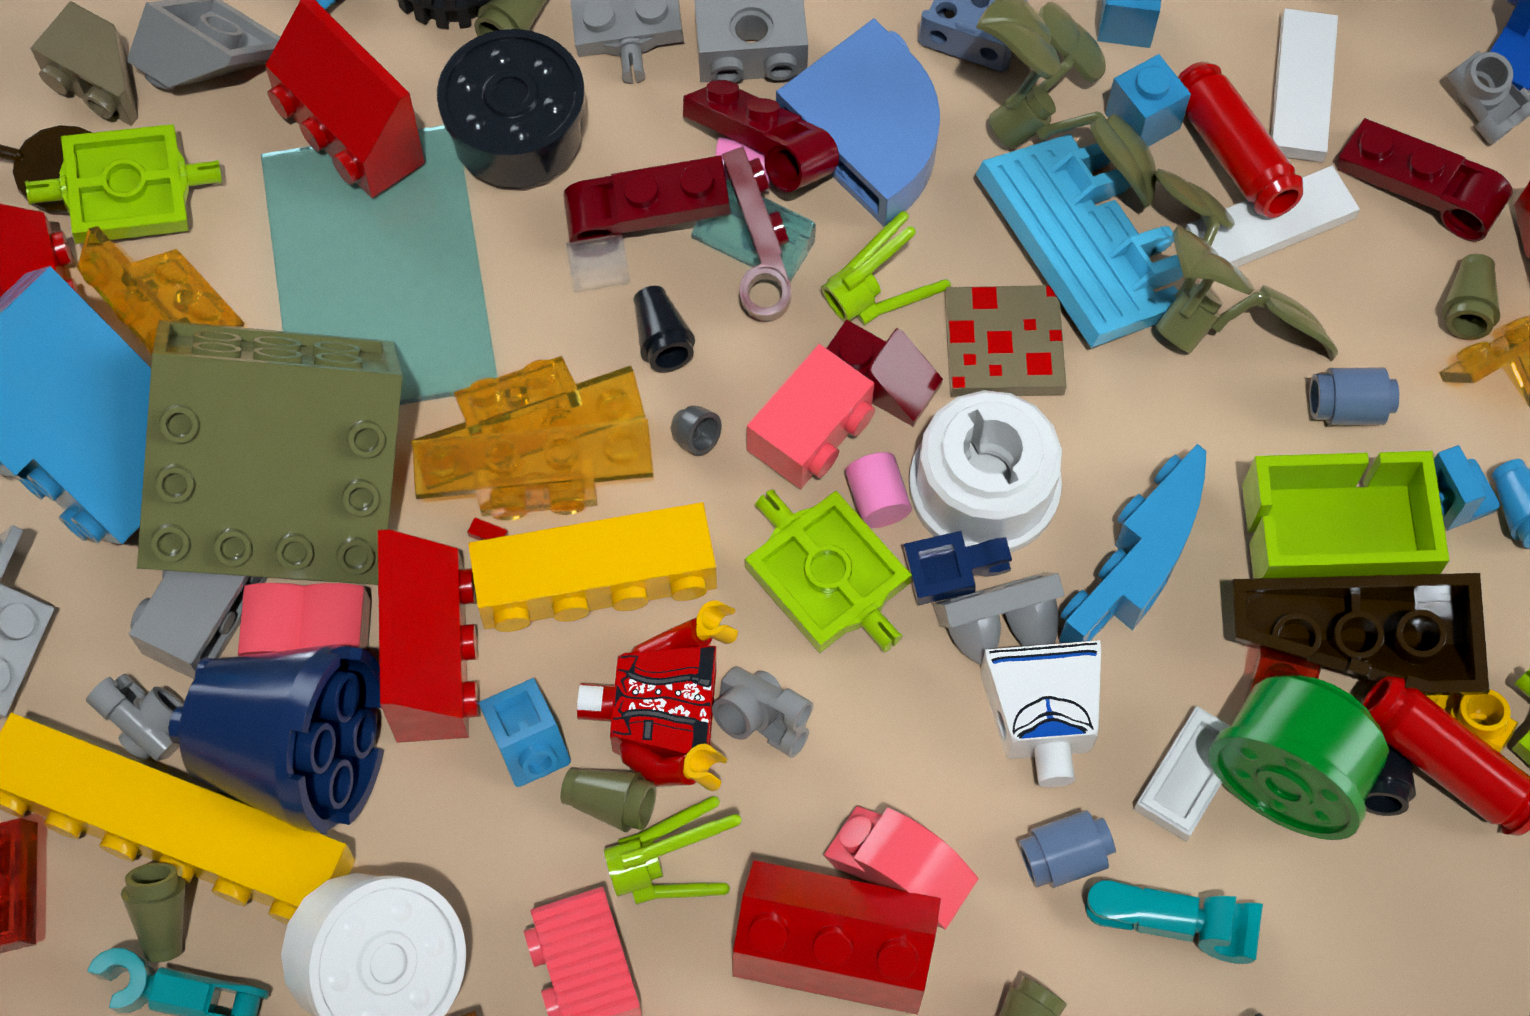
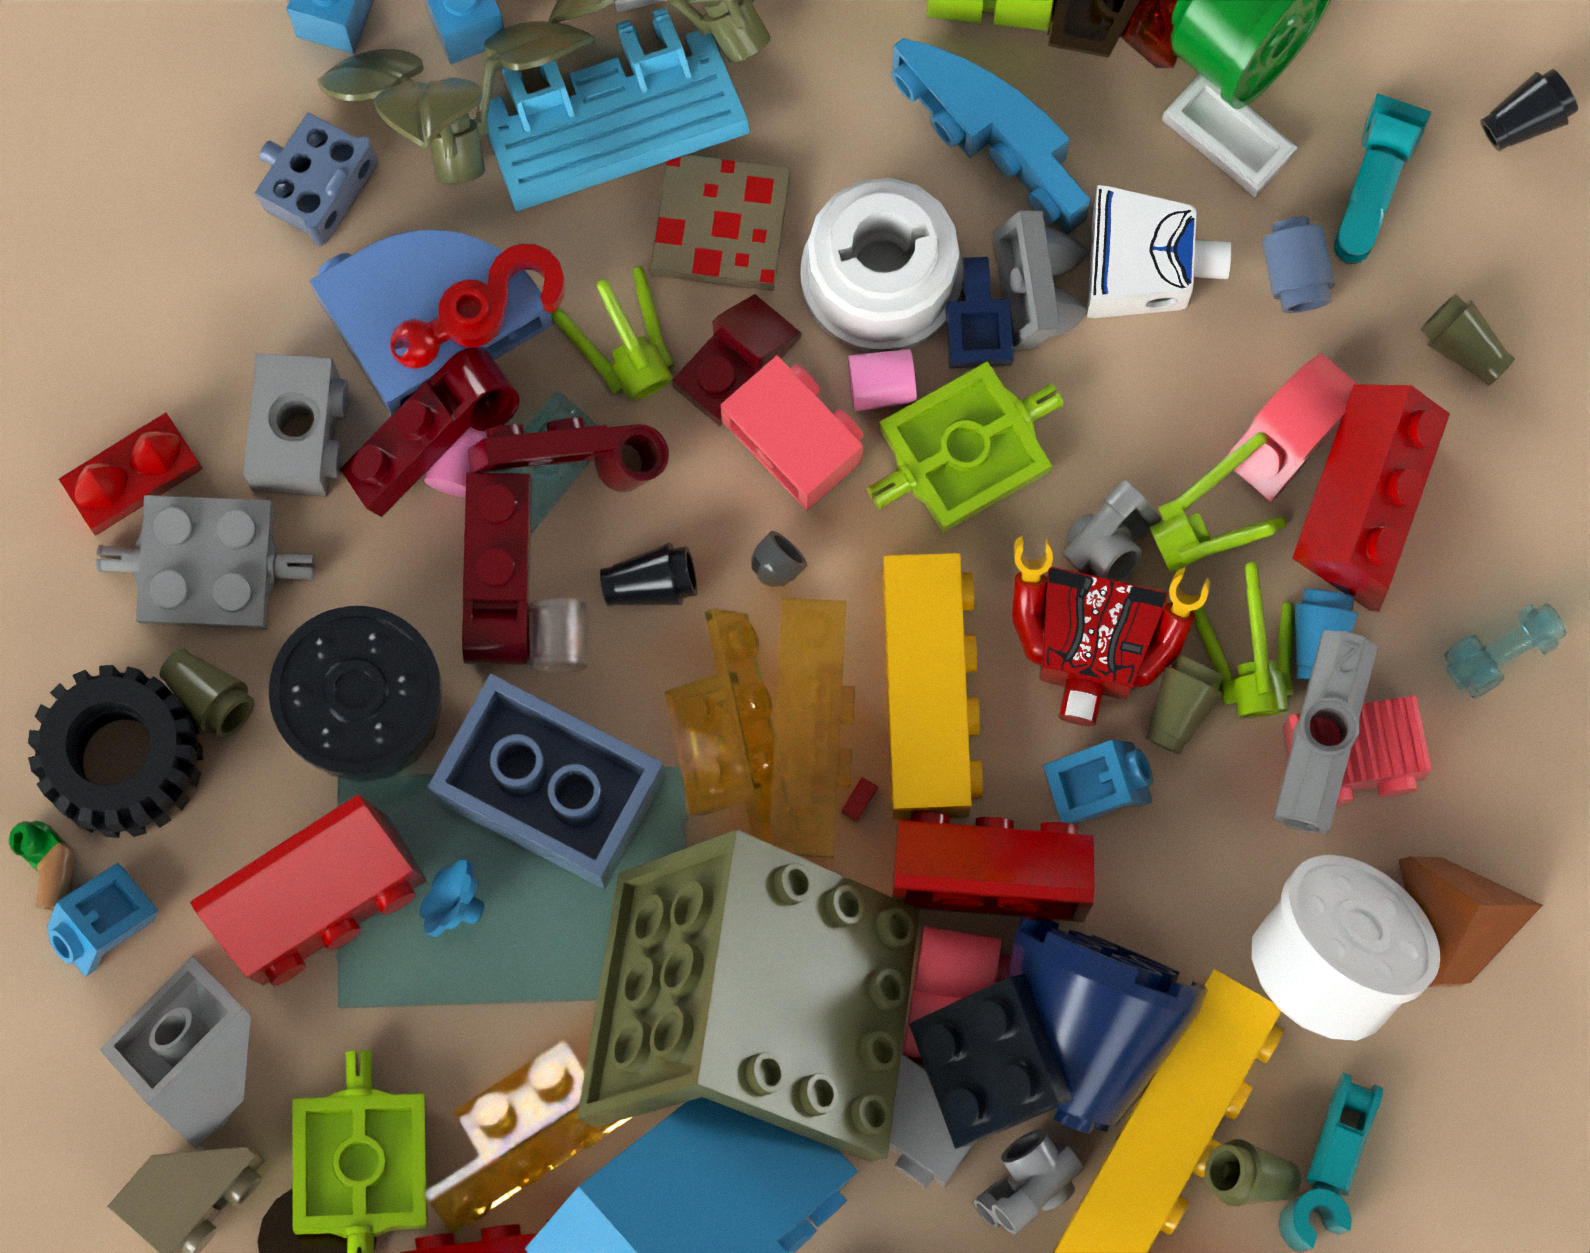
camera: 80 degrees left, 10 degrees up
(226, 638) = (990, 1061): none -> black plate
(352, 215) = (451, 899): none -> dark azure plant
(457, 262) = (547, 781): none -> sand blue brick
(538, 900) = (1315, 770): none -> light grey piece
(696, 918) = (1316, 613): none -> dark azure cone
(770, 777) = (1185, 538): none -> lime plant
(864, 137) = (474, 311): none -> red piece

